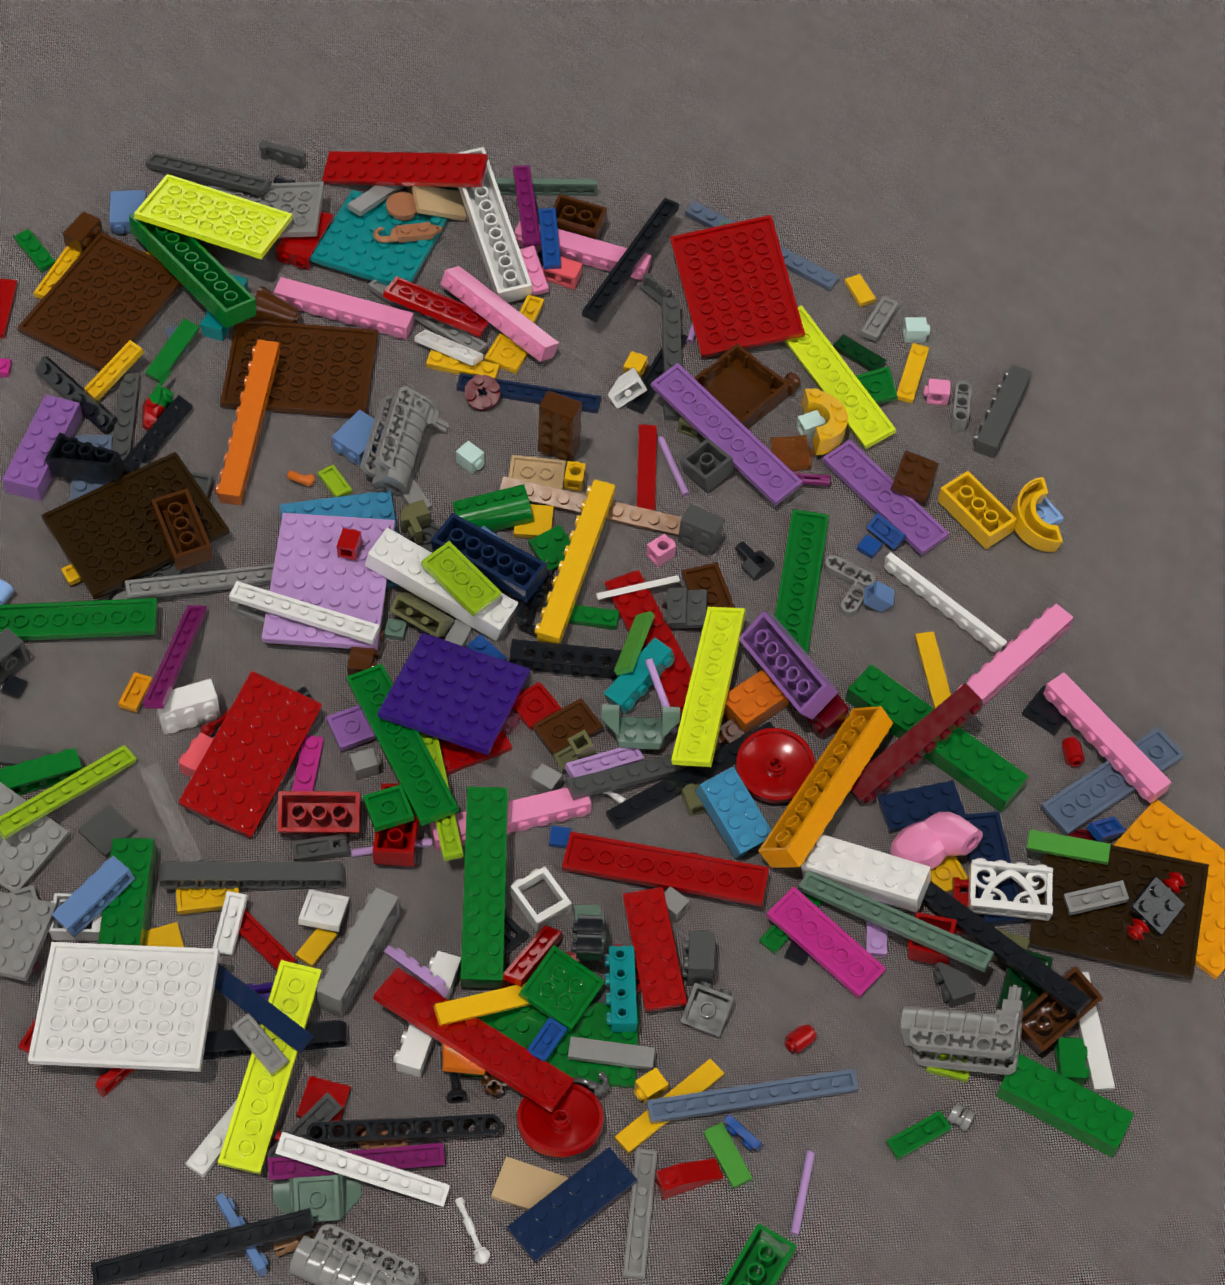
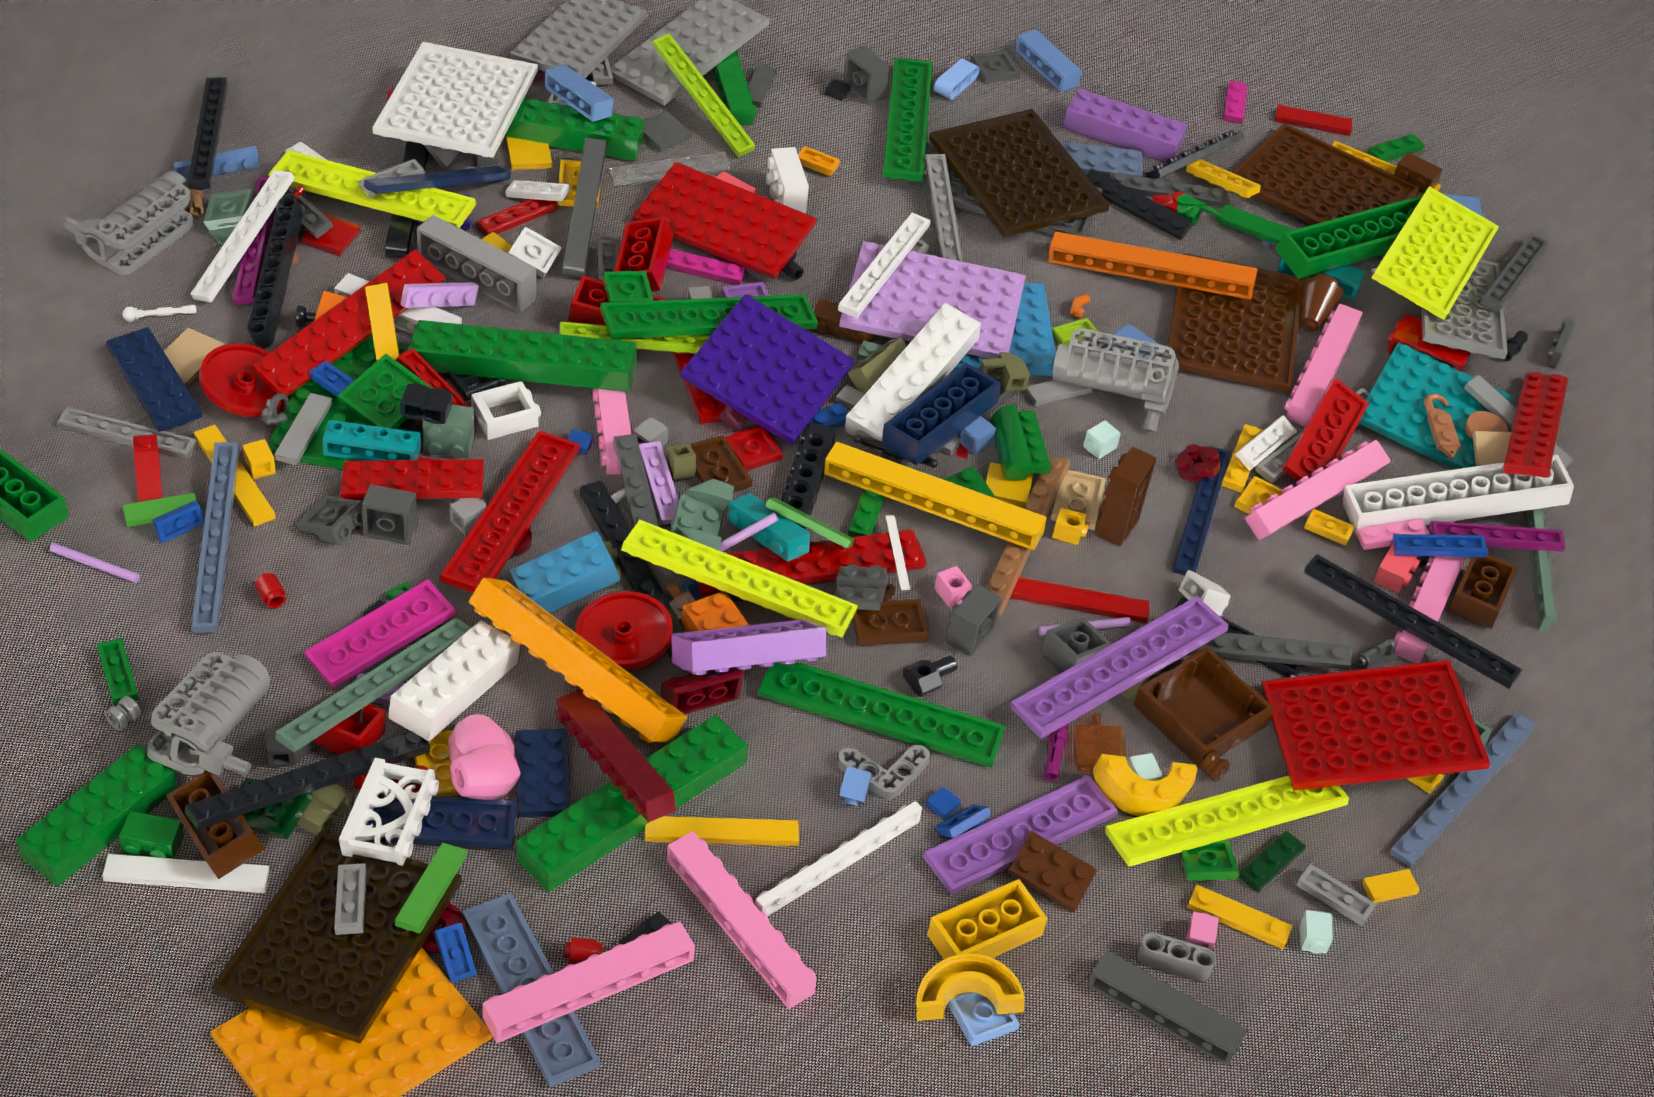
camera: 95 degrees right, 10 degrees down
(83, 460) = (1099, 137): black wedge -> none
(175, 657) = (843, 172): magenta plate -> none
(182, 529) = (997, 186): reddish brown brick -> none
(349, 544) = (971, 303): red brick -> none
(461, 578) = (906, 375): lime plate -> none
(636, 361) = (1242, 610): yellow brick -> none
(1156, 906) = (315, 955): black plate -> none

